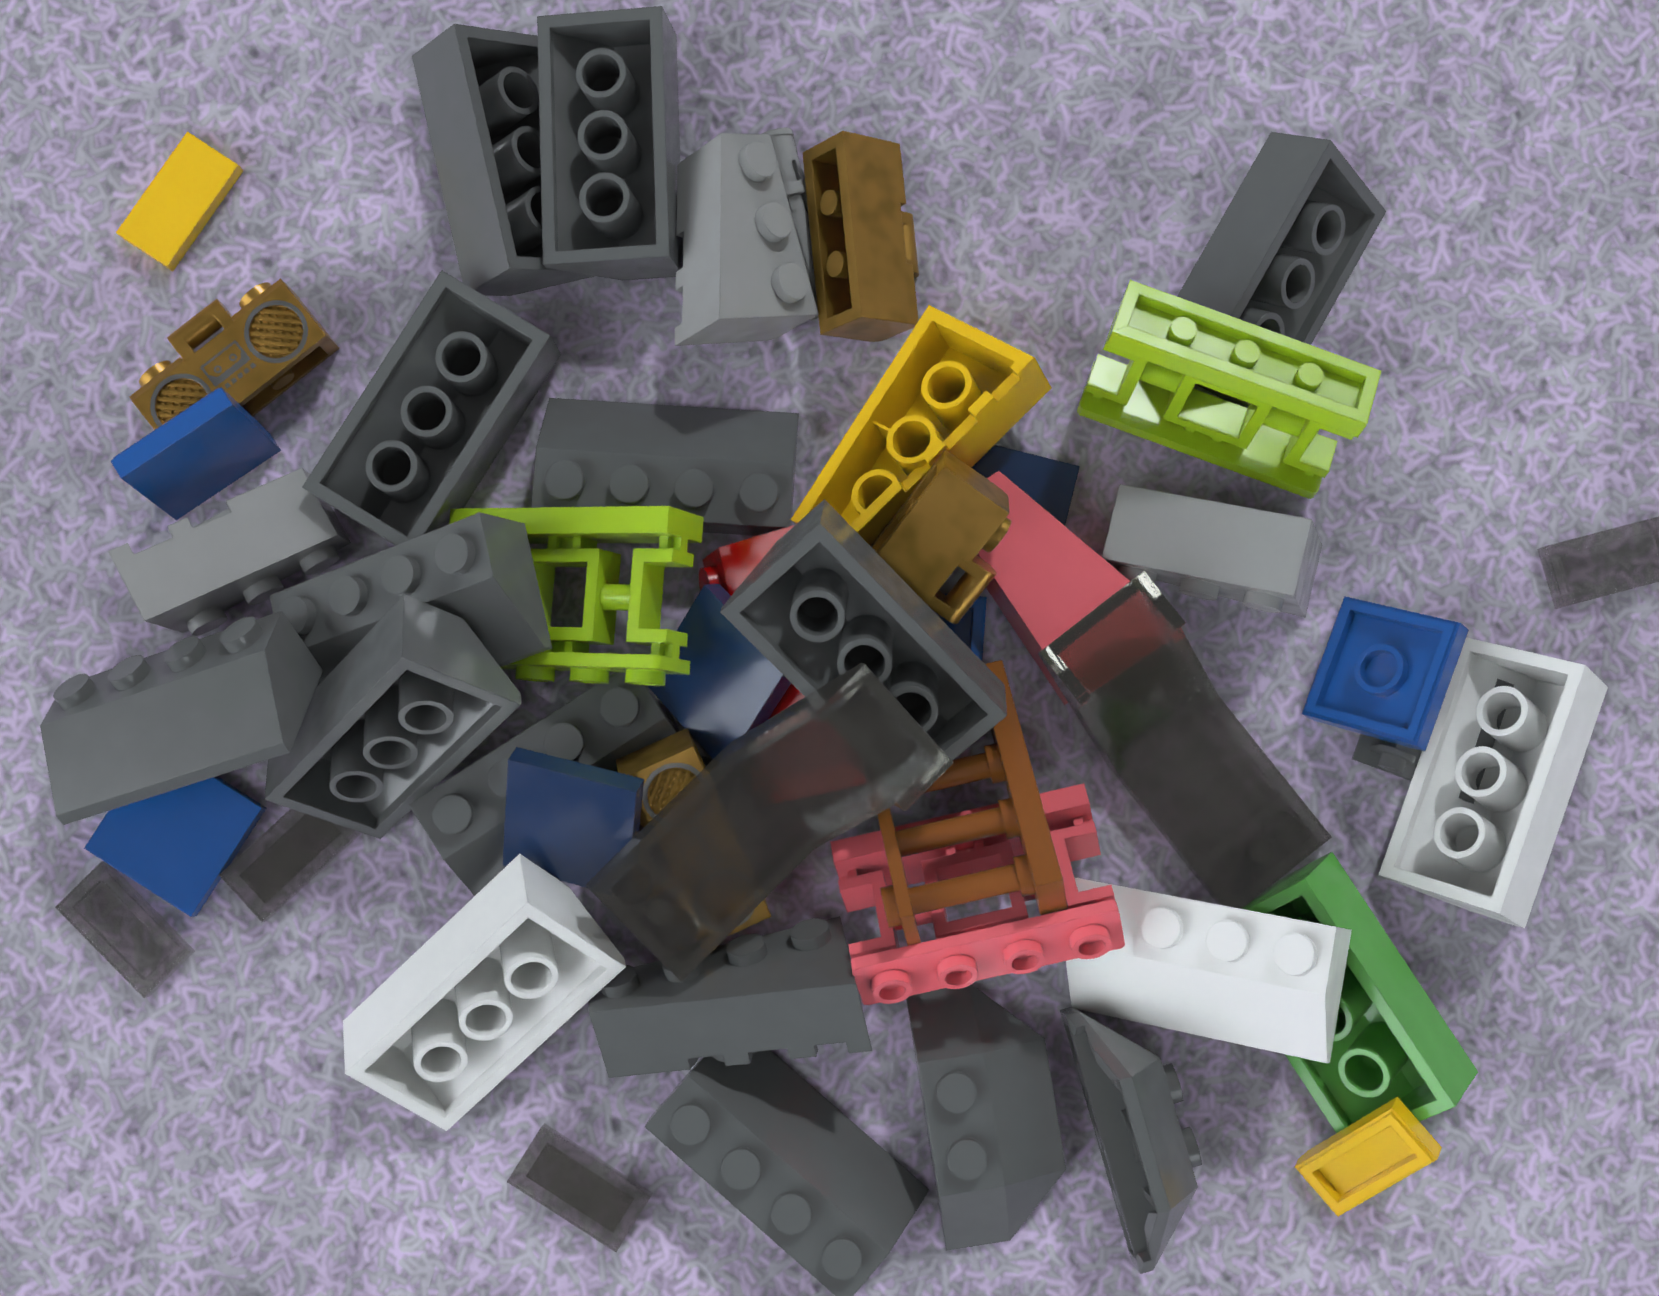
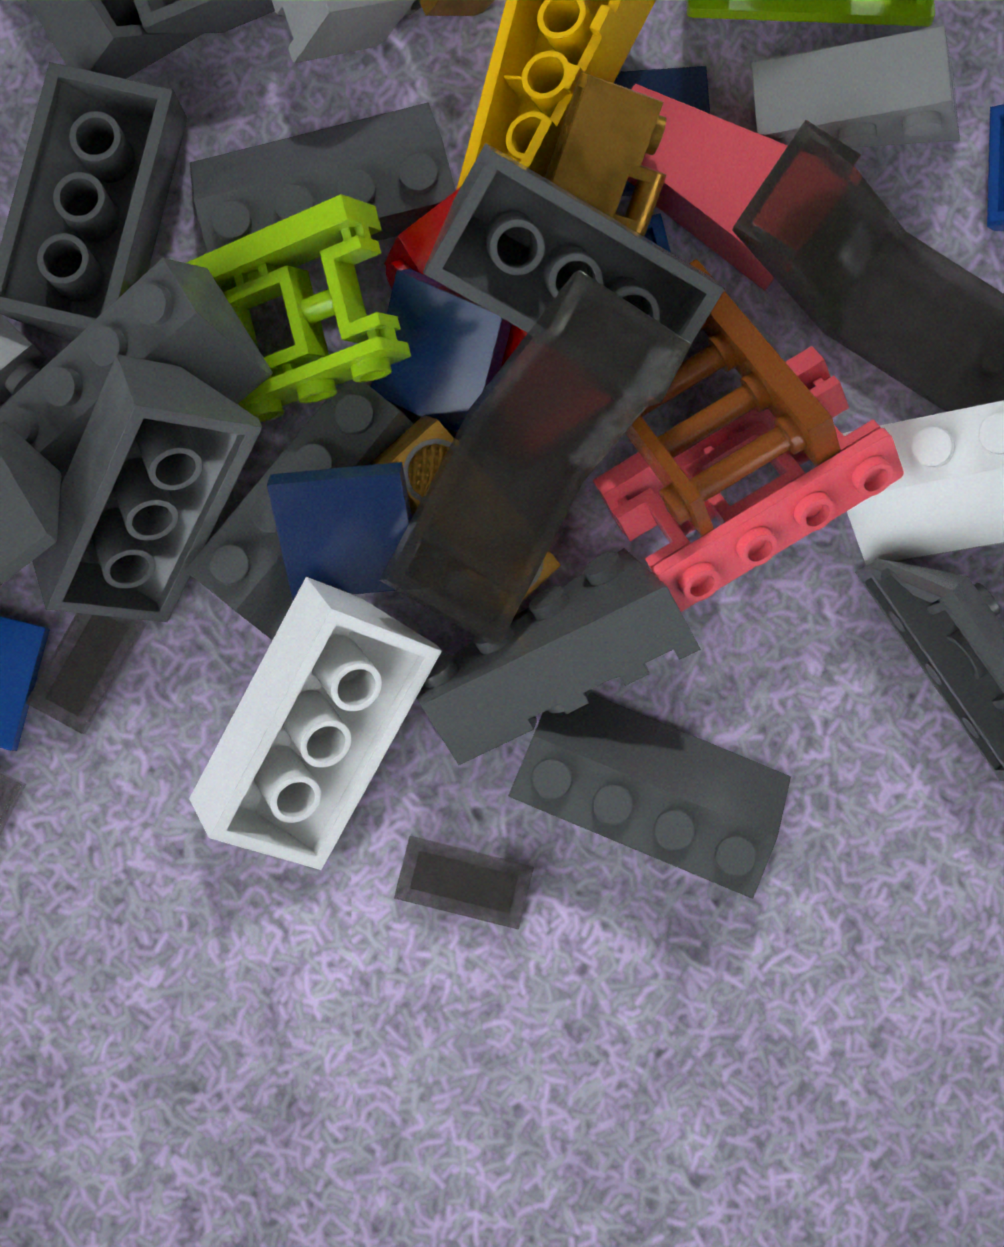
camera: 20 degrees left, 0 degrees up
(984, 1113) = (818, 687): dark grey wedge -> none

